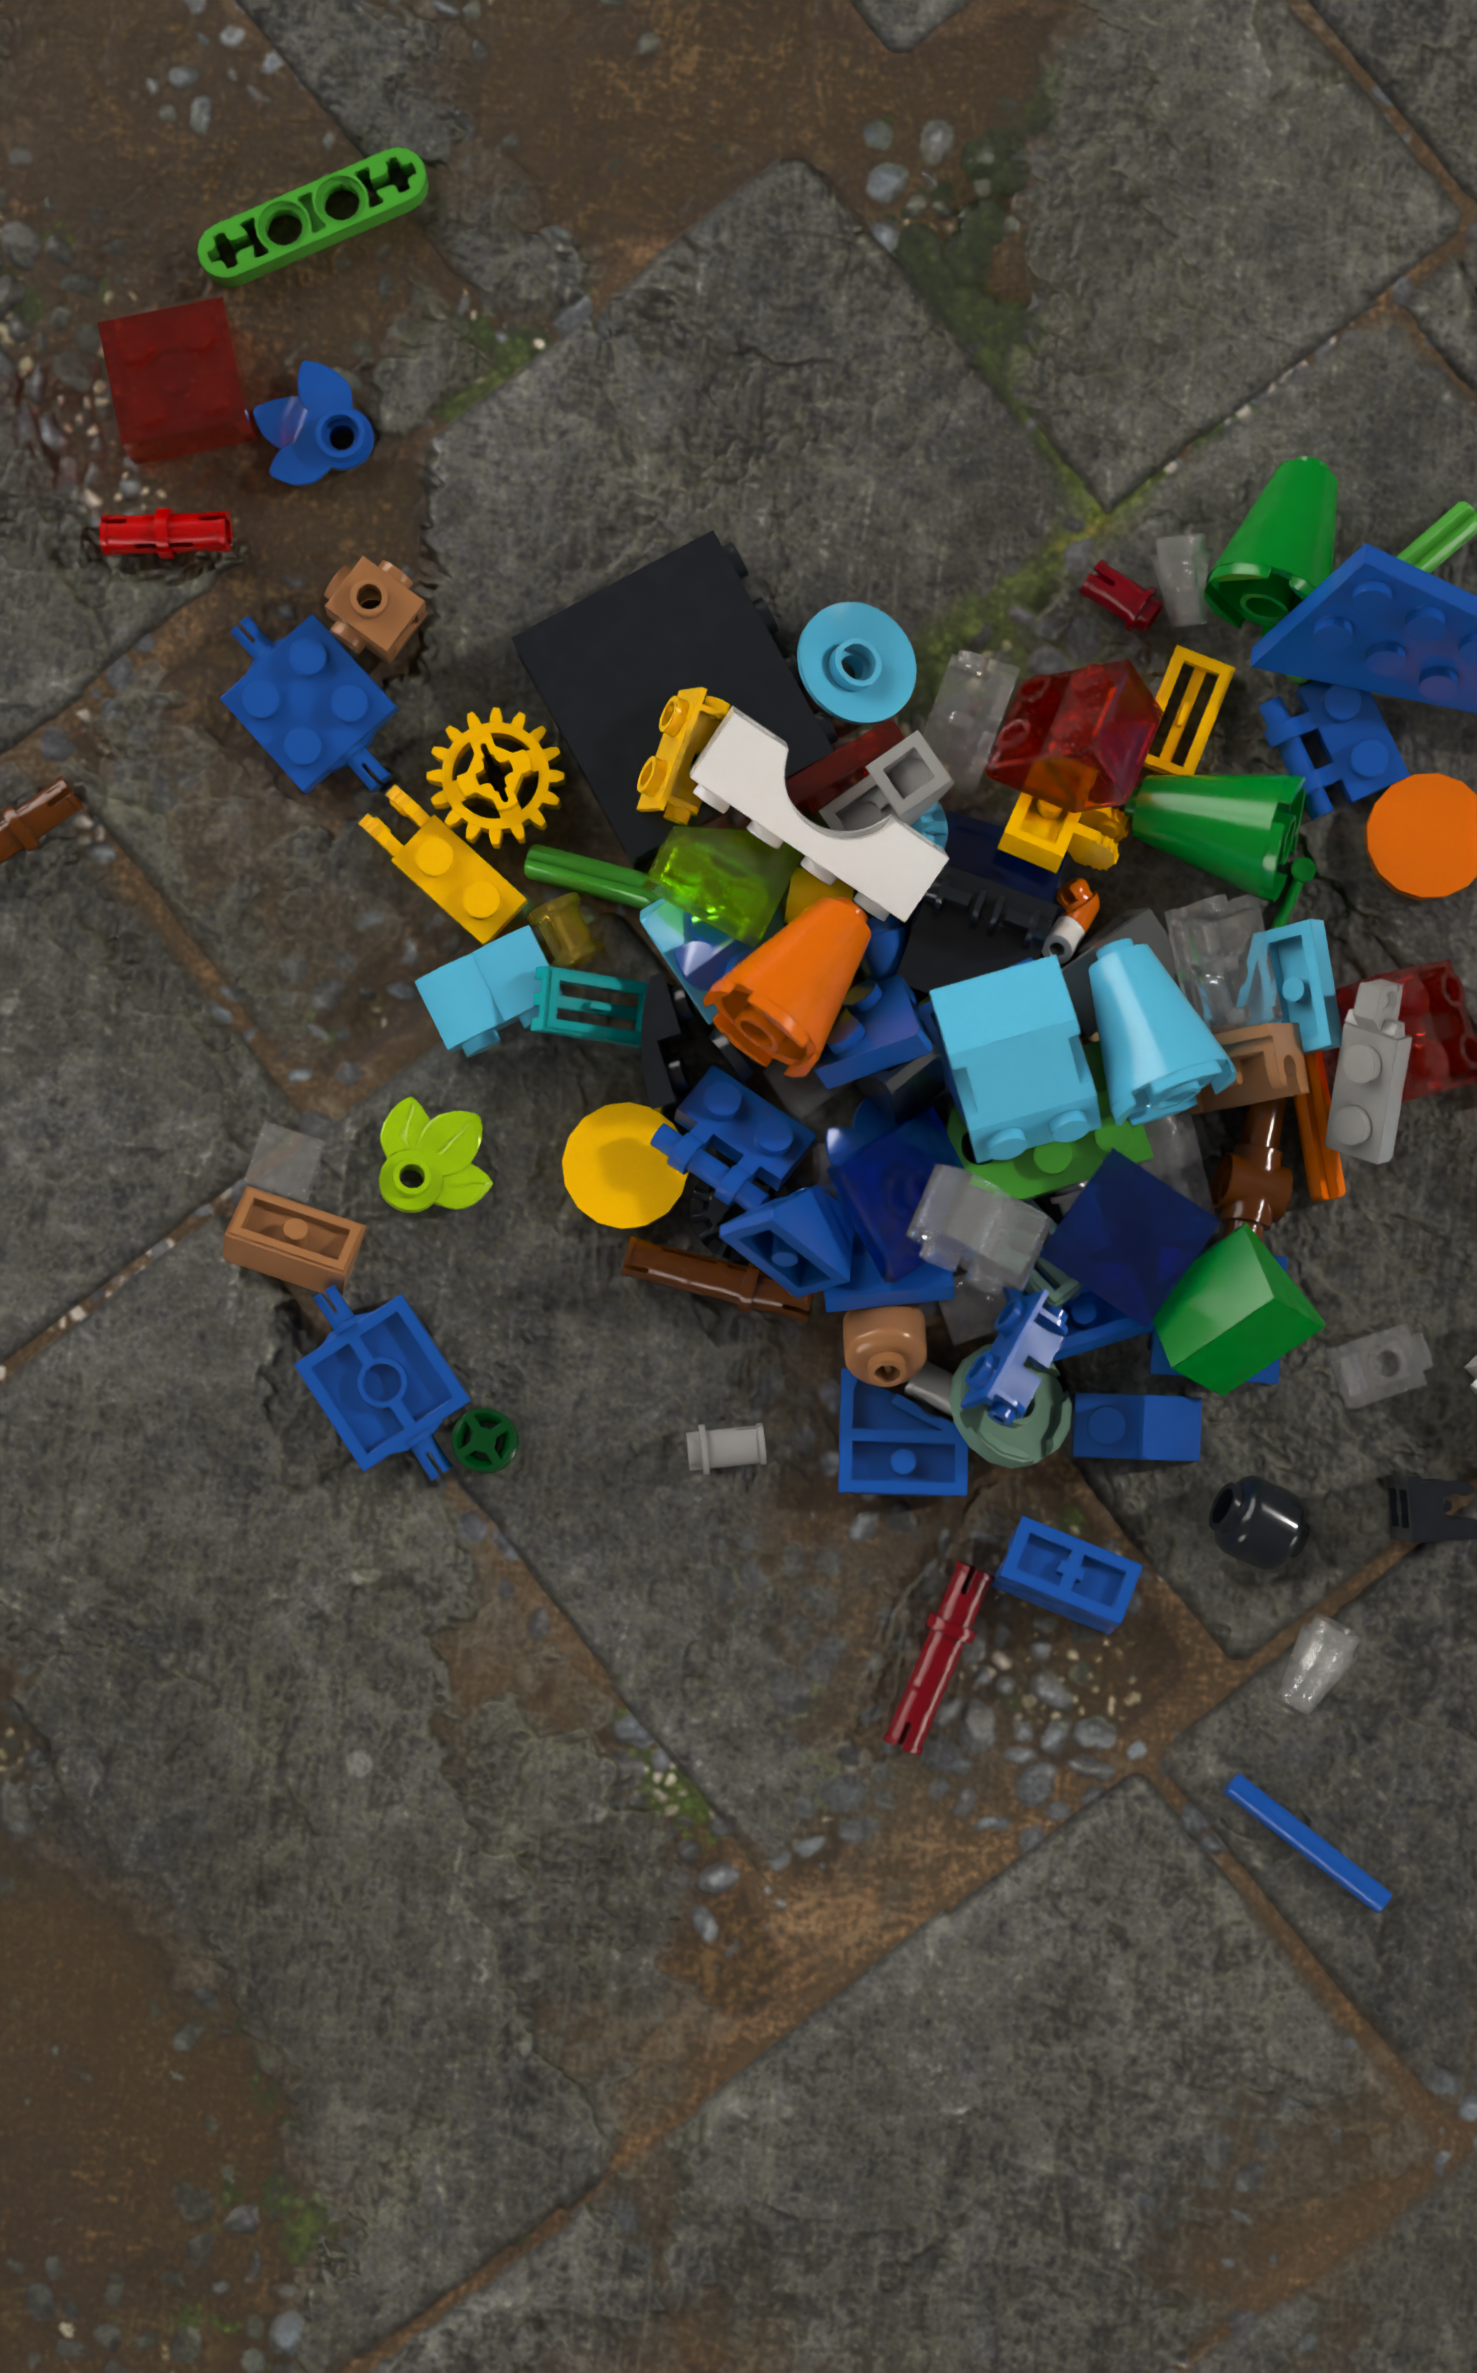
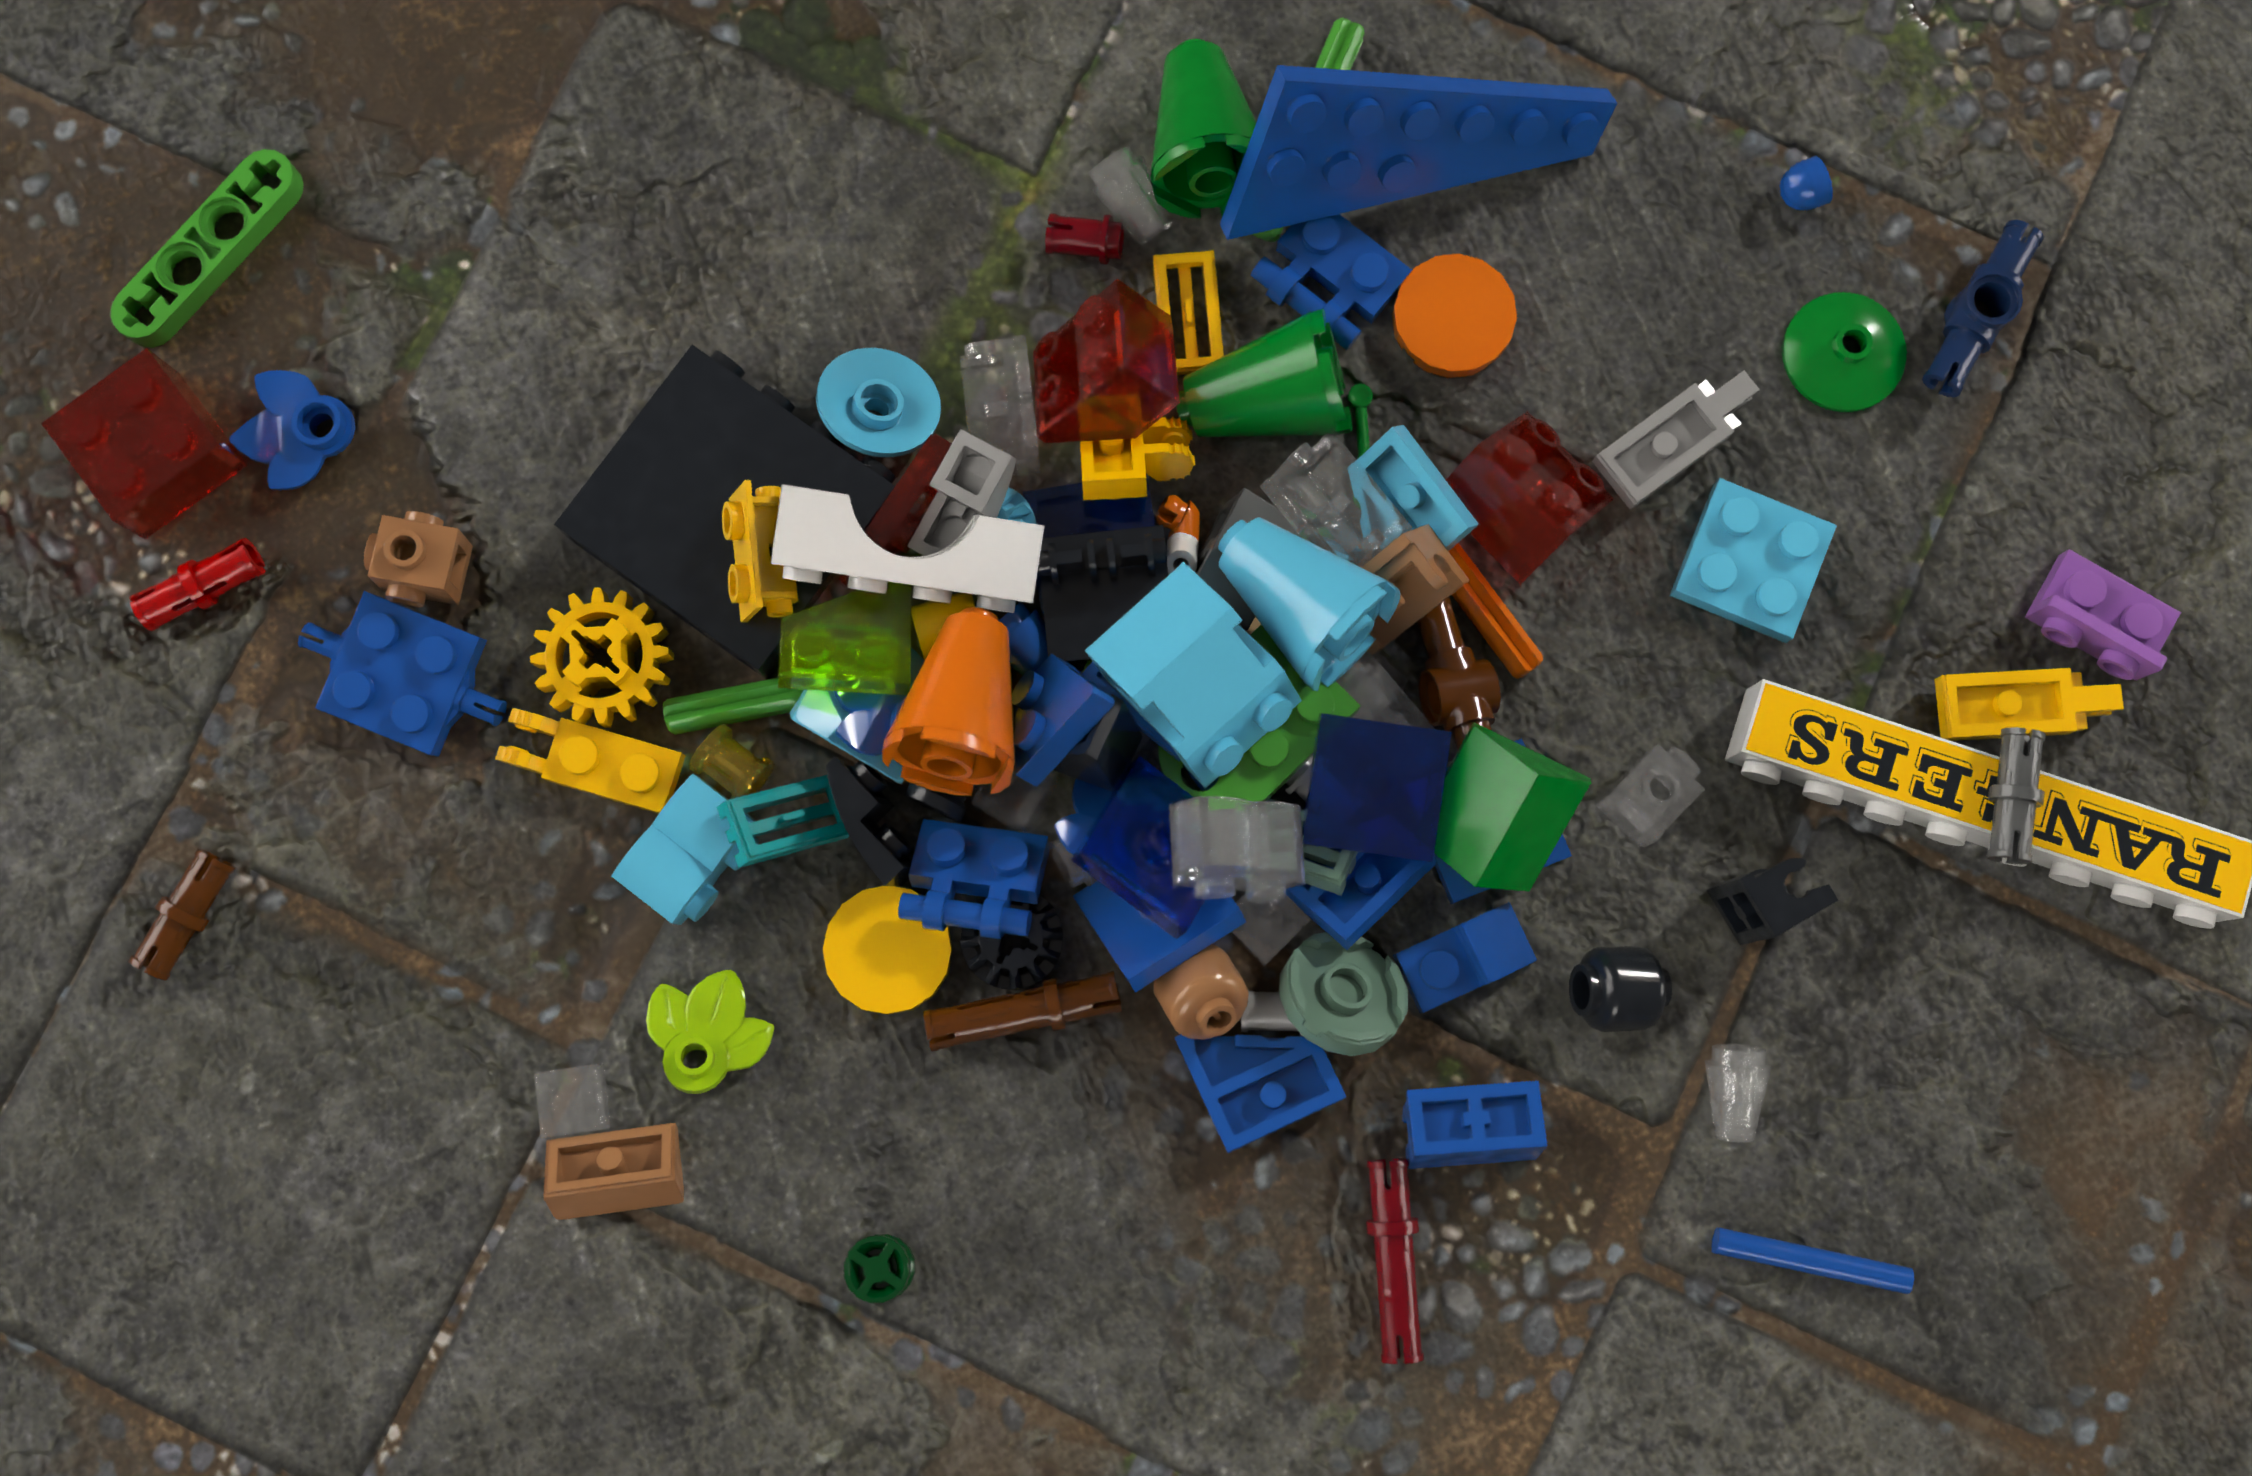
camera: 35 degrees left, 5 degrees down
(383, 1382) = (758, 1262): blue plate -> none
(725, 1447) = (1104, 1163): light grey pin -> none
(796, 1240) = (1076, 939): blue slope -> none
(1023, 1335) = (1321, 970): blue hinge -> none
(1370, 1075) = (1515, 538): light grey hinge -> none

